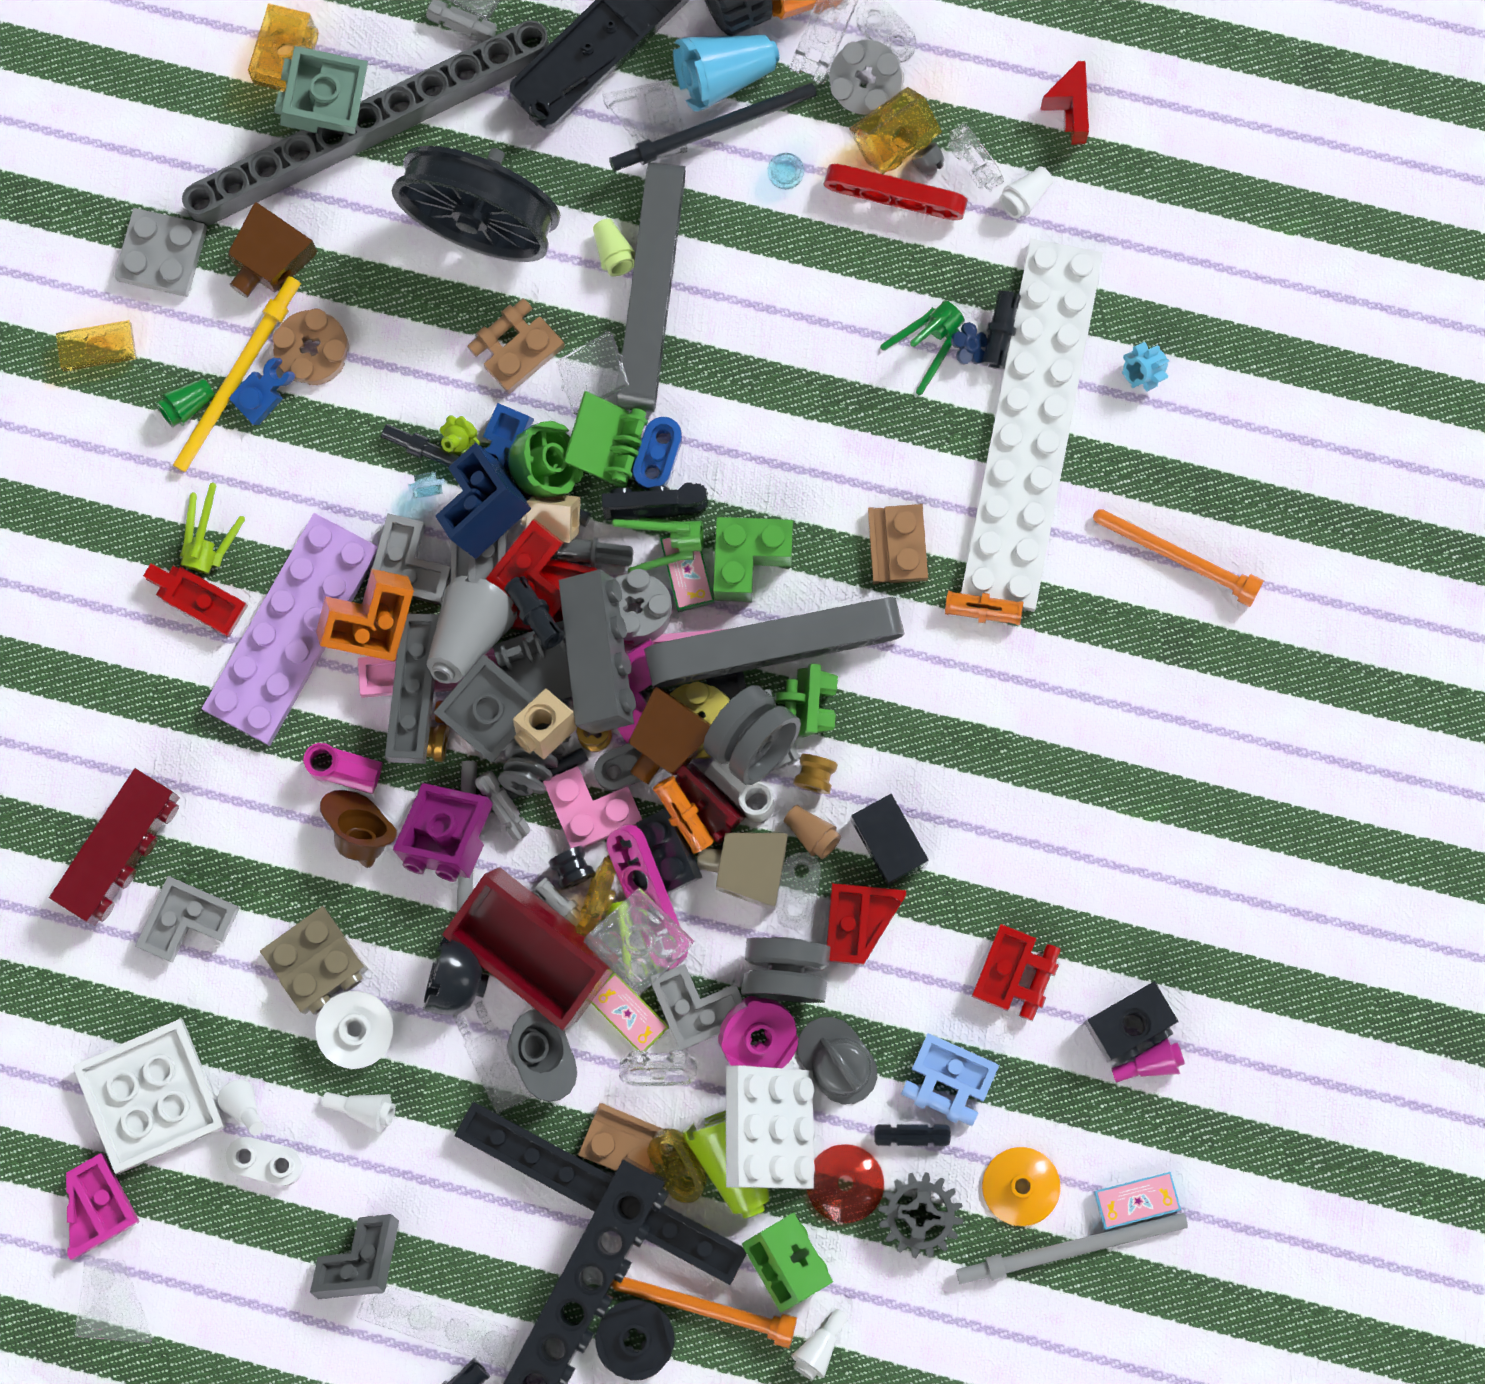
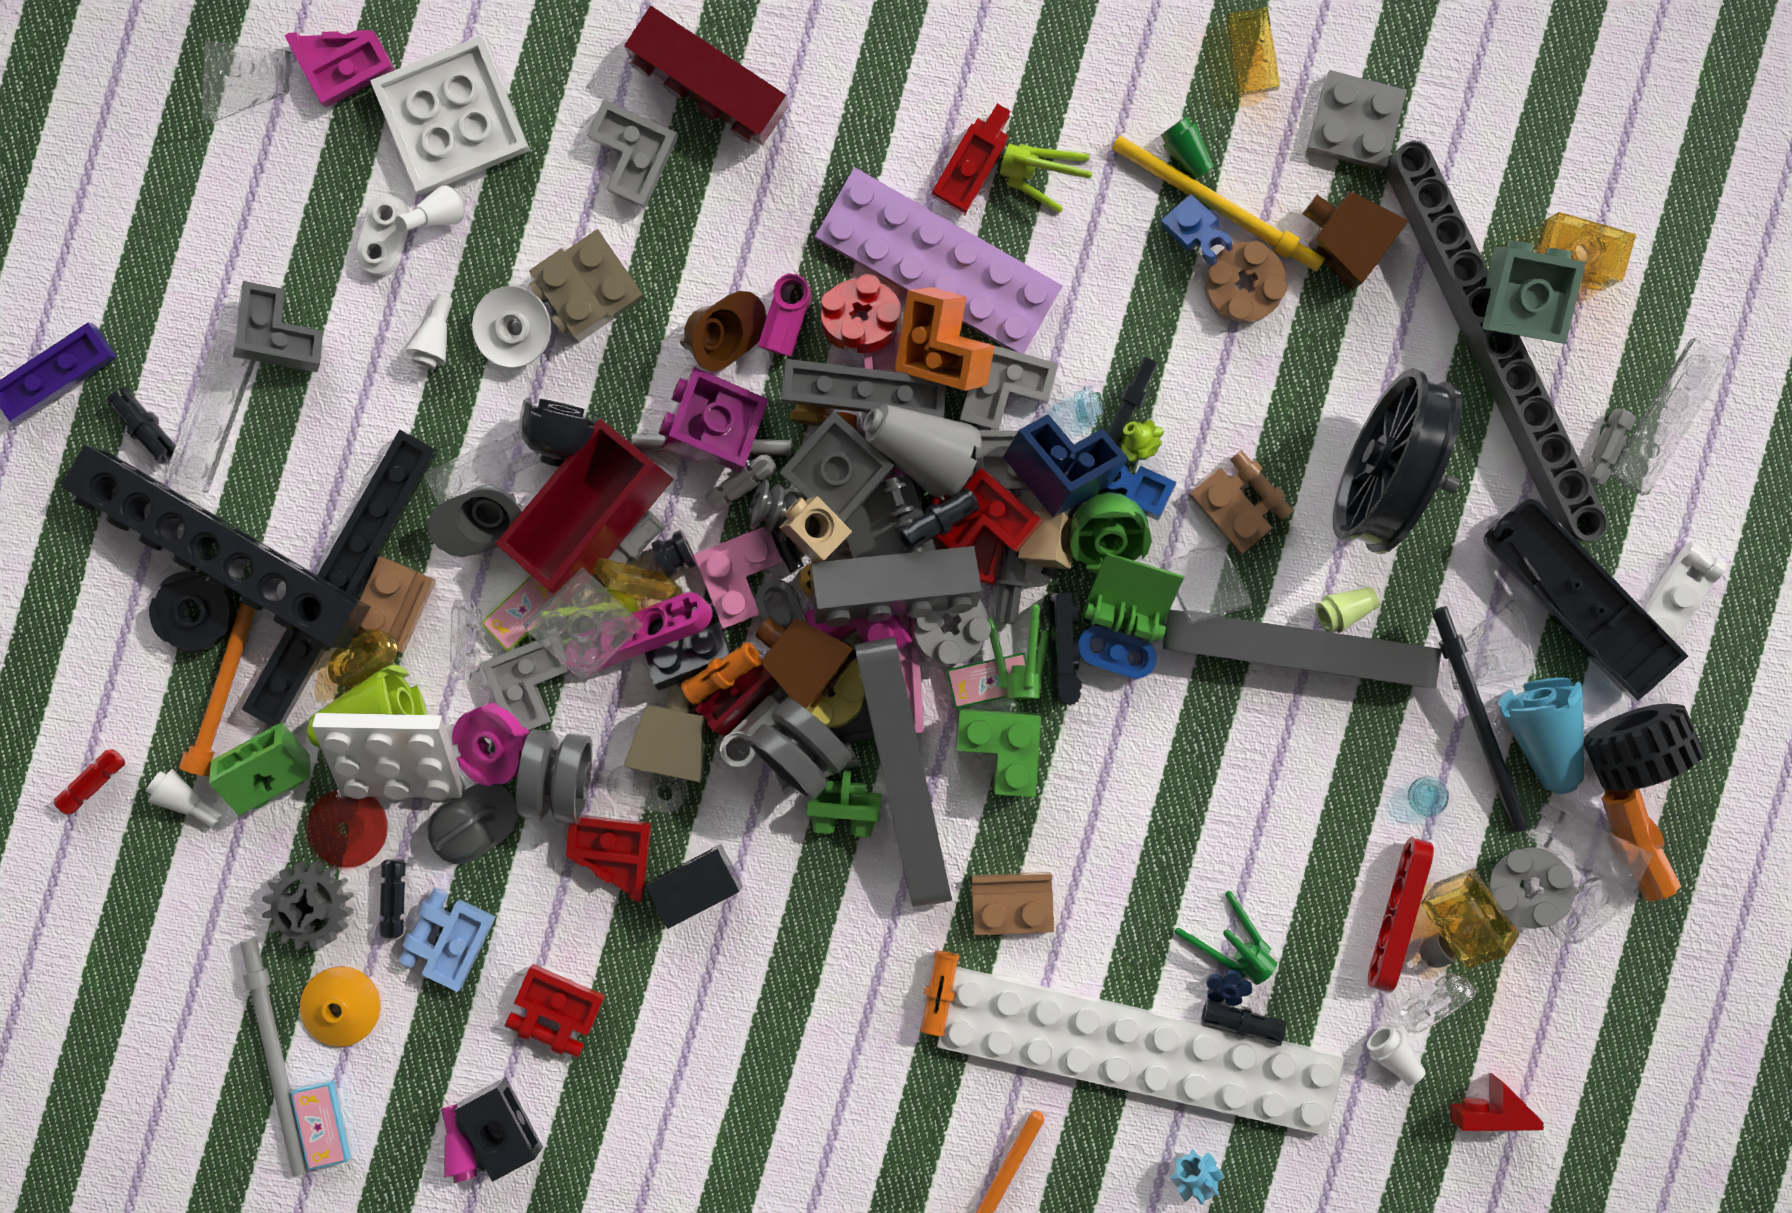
camera: 85 degrees right, 10 degrees up
(323, 695) = (860, 295): none -> plate
(813, 832) = (706, 805): medium nougat cone -> none
(815, 773) = (766, 810): pearl gold wheel -> none

